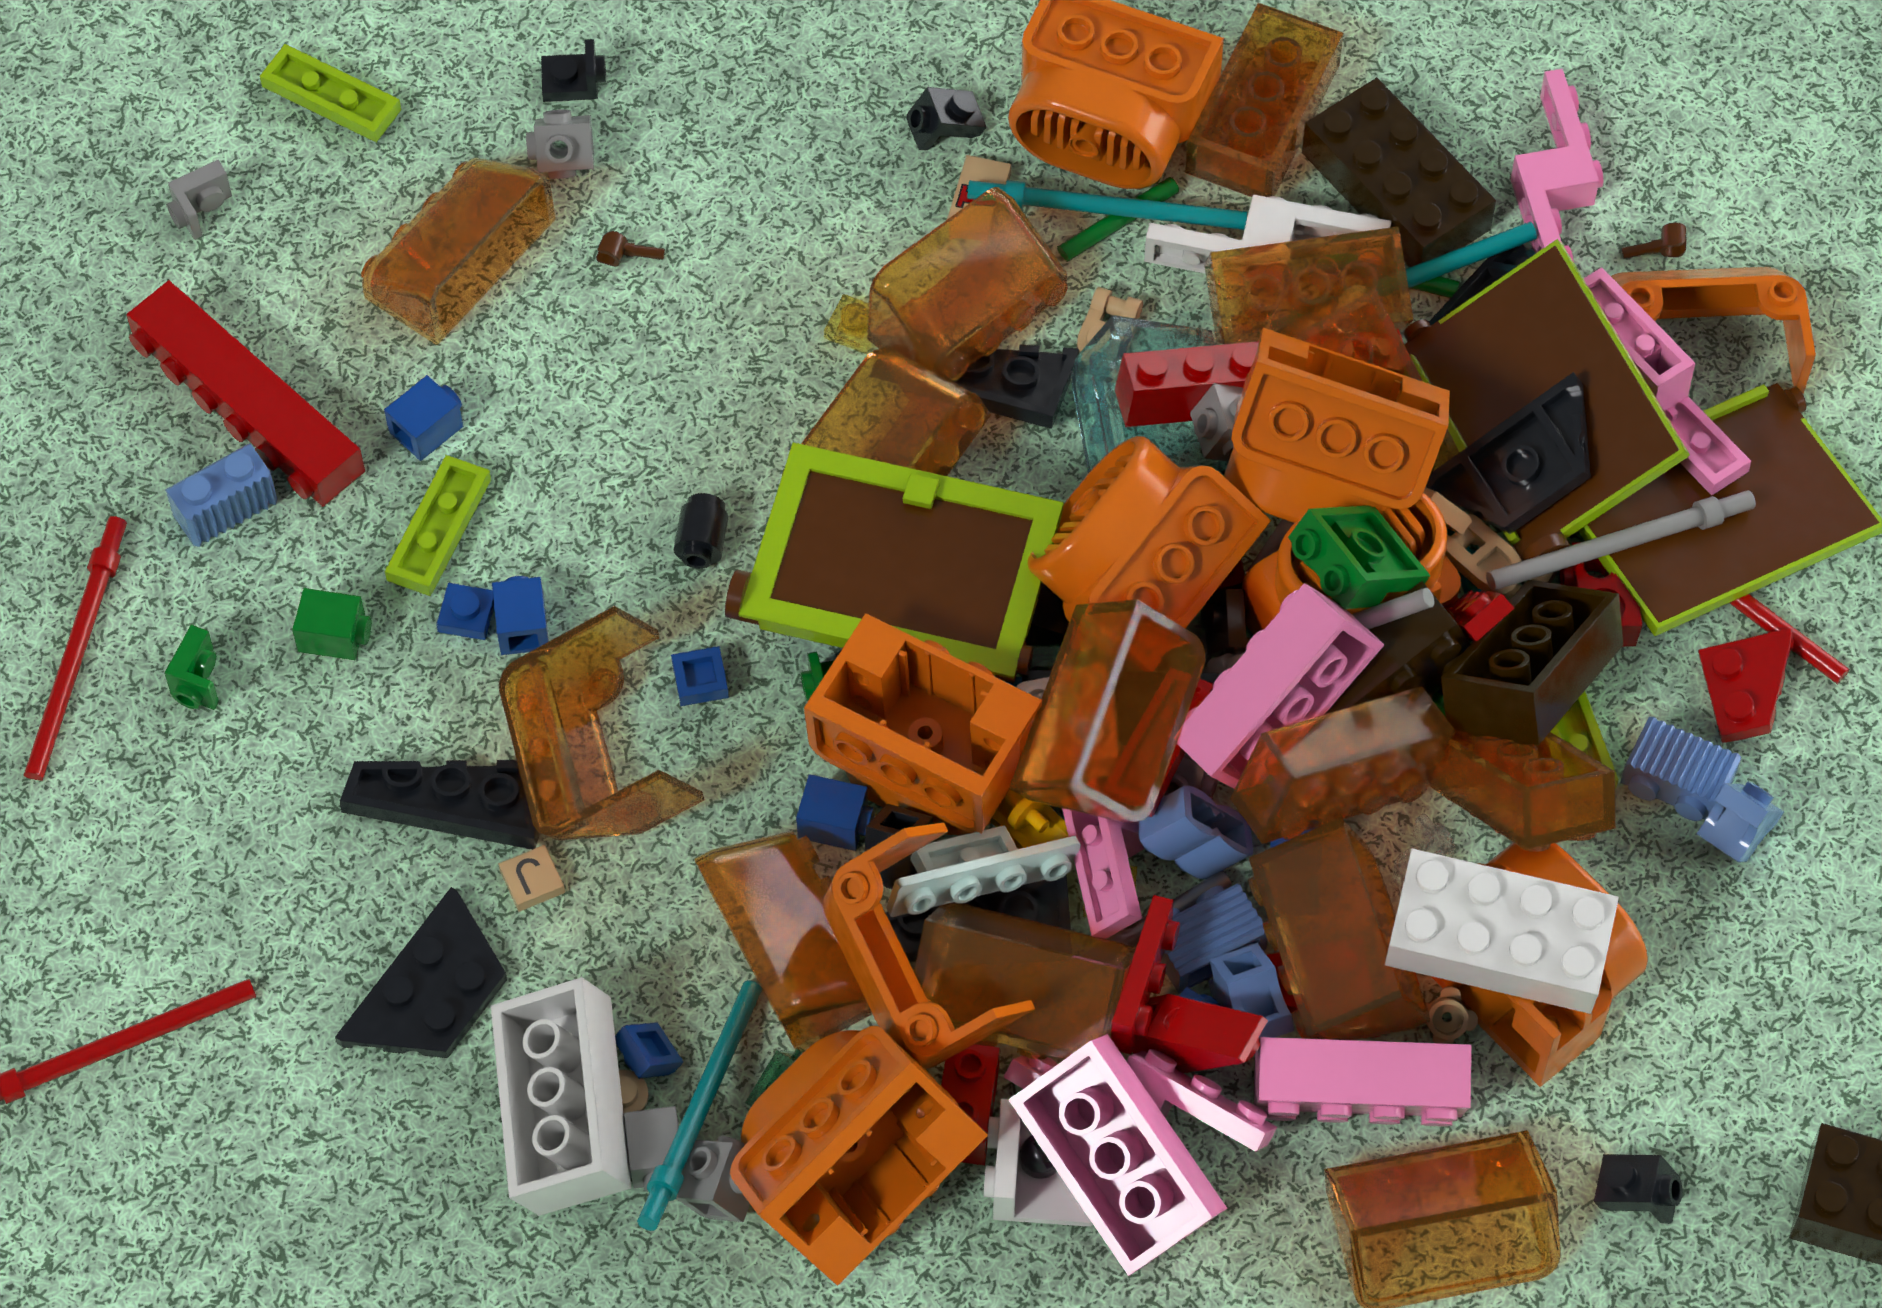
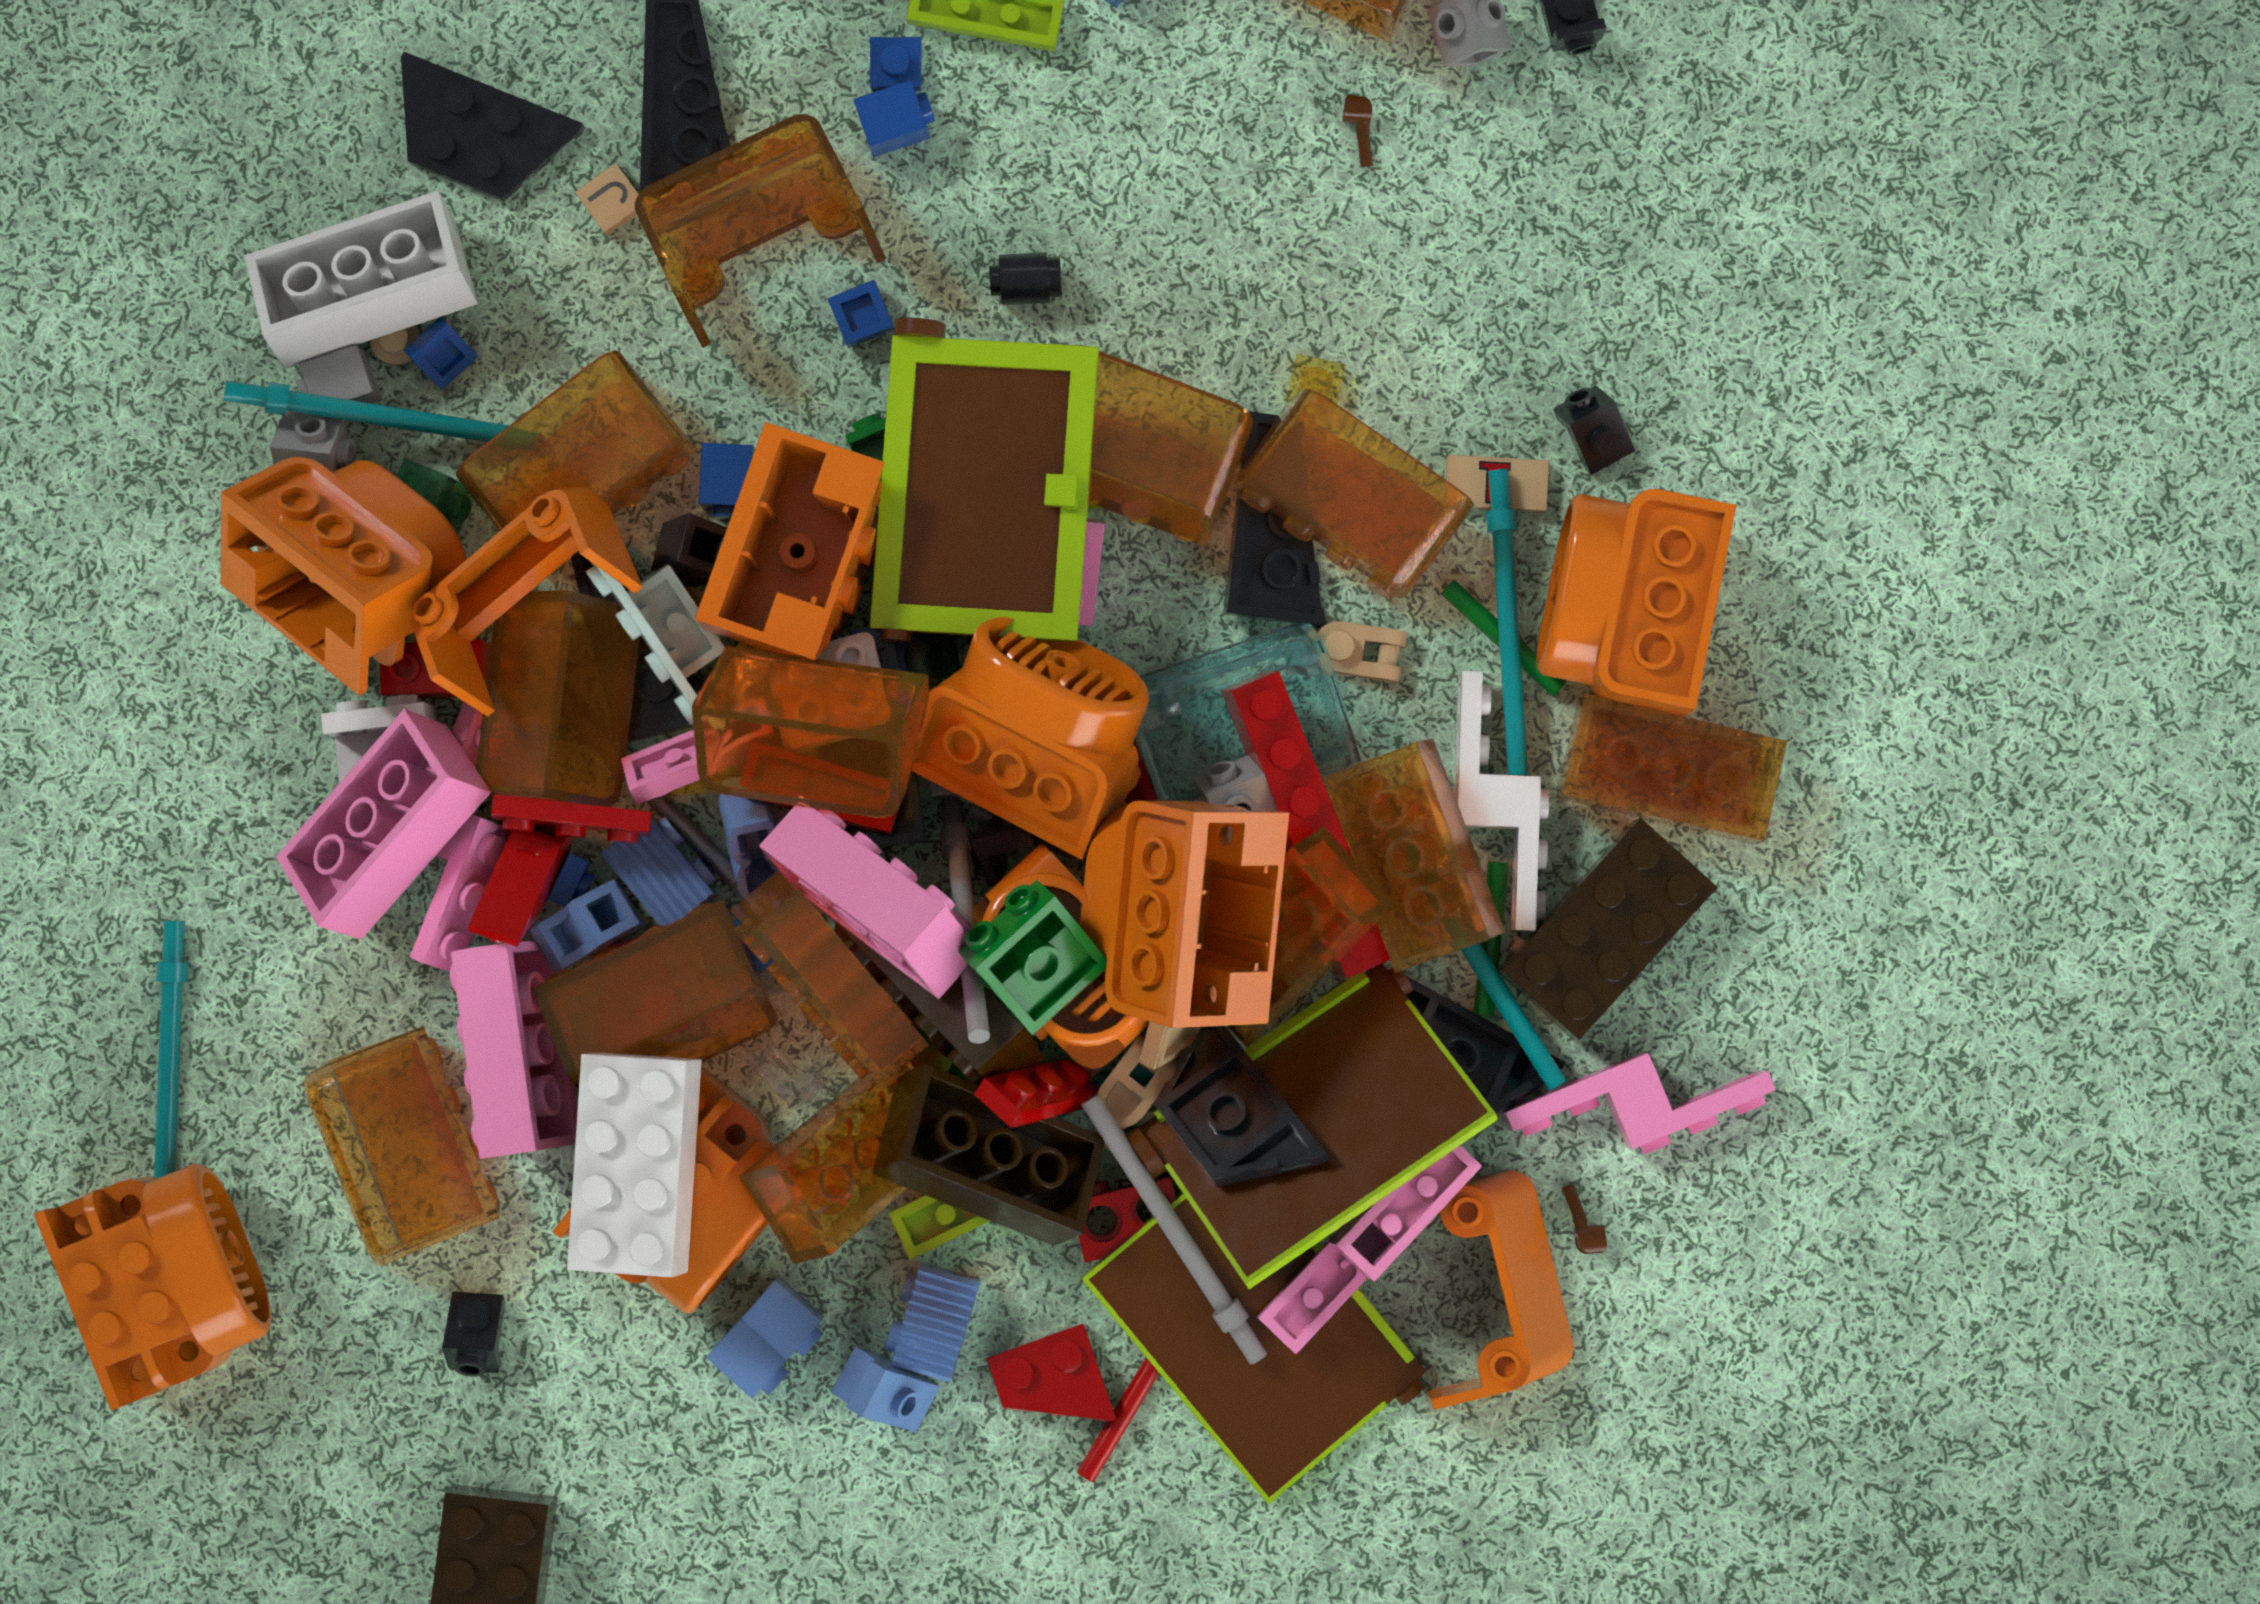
camera: 80 degrees right, 25 degrees up
(1678, 919) = (766, 1338): none -> medium blue brick

